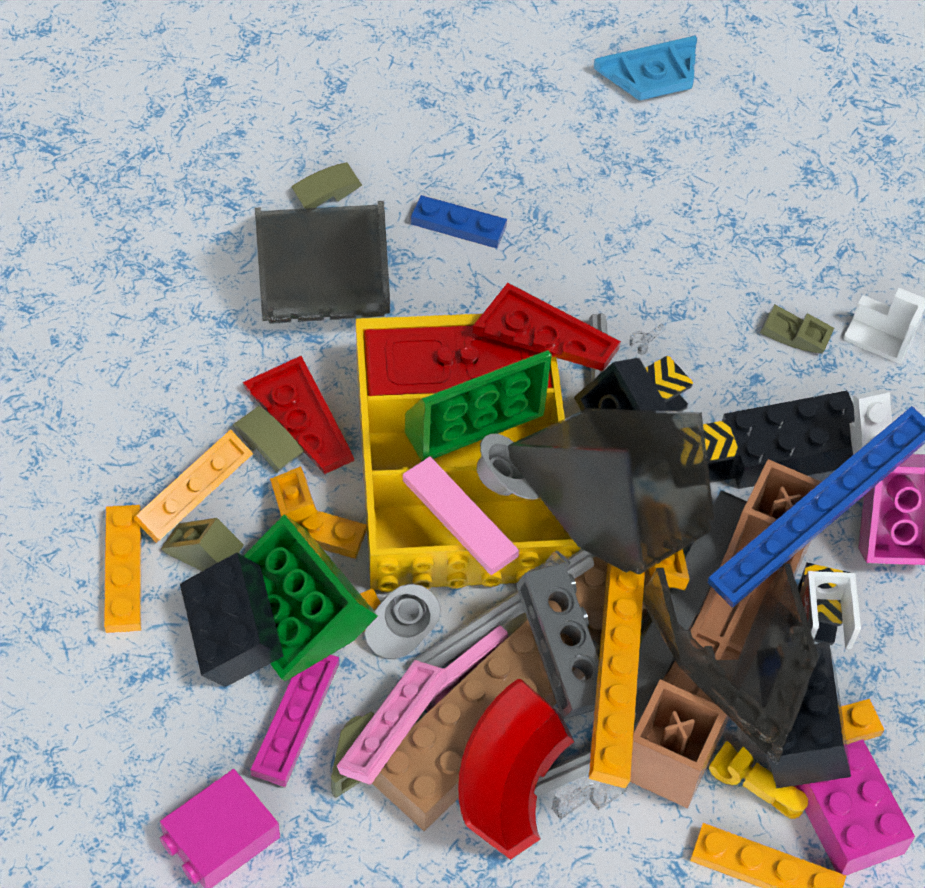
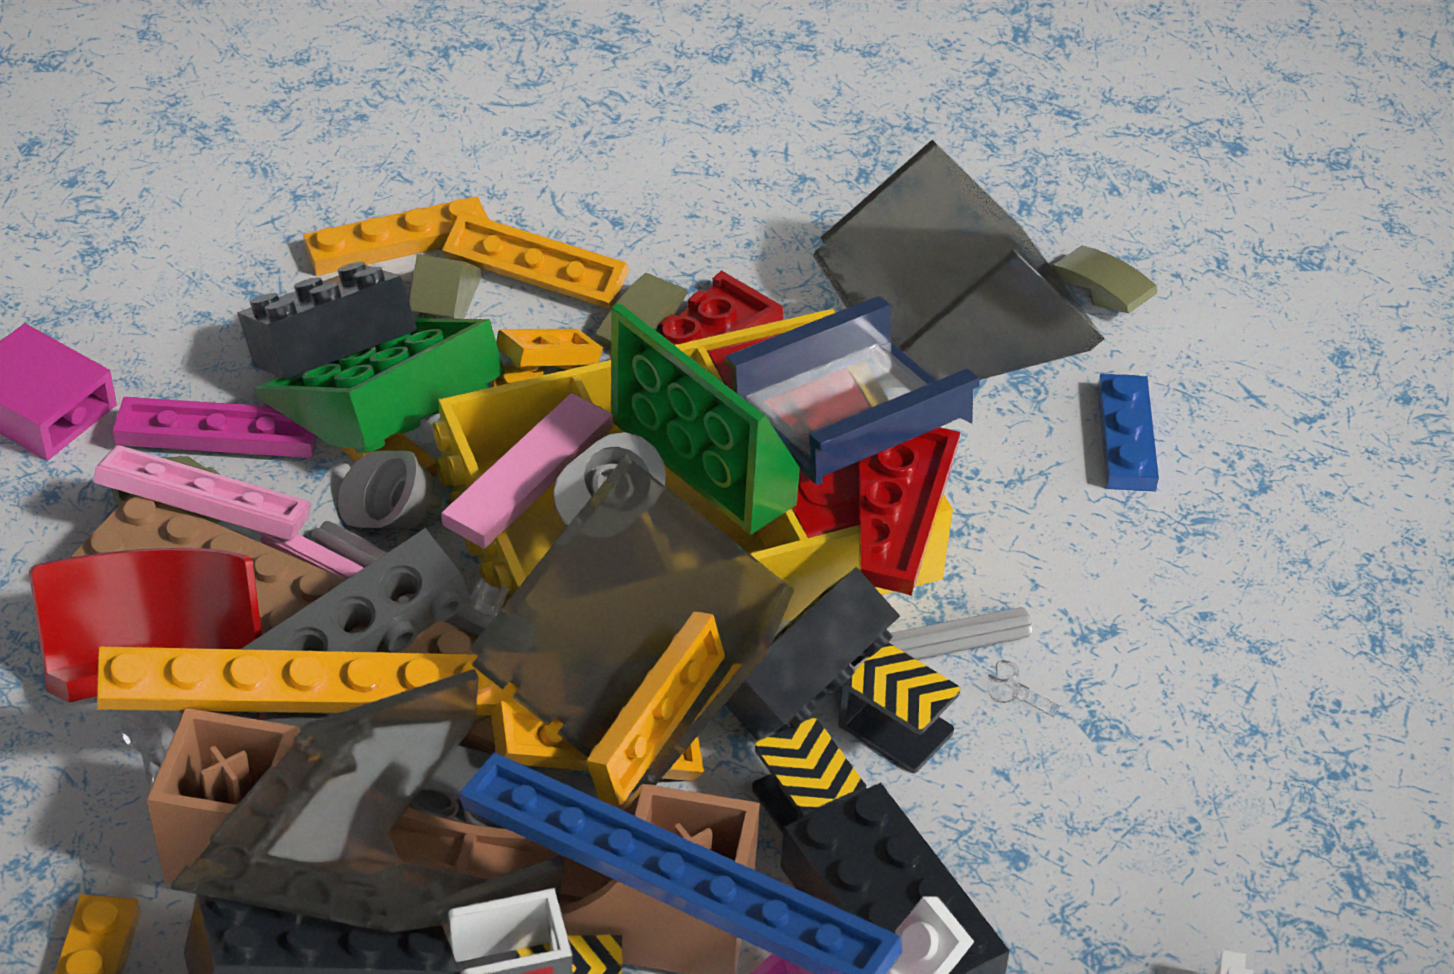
camera: 75 degrees right, 10 degrees down
(468, 325) = (845, 389): none -> dark blue piece
(682, 504) = (655, 709): none -> light orange plate
(804, 334) = (1142, 891): olive slope -> none

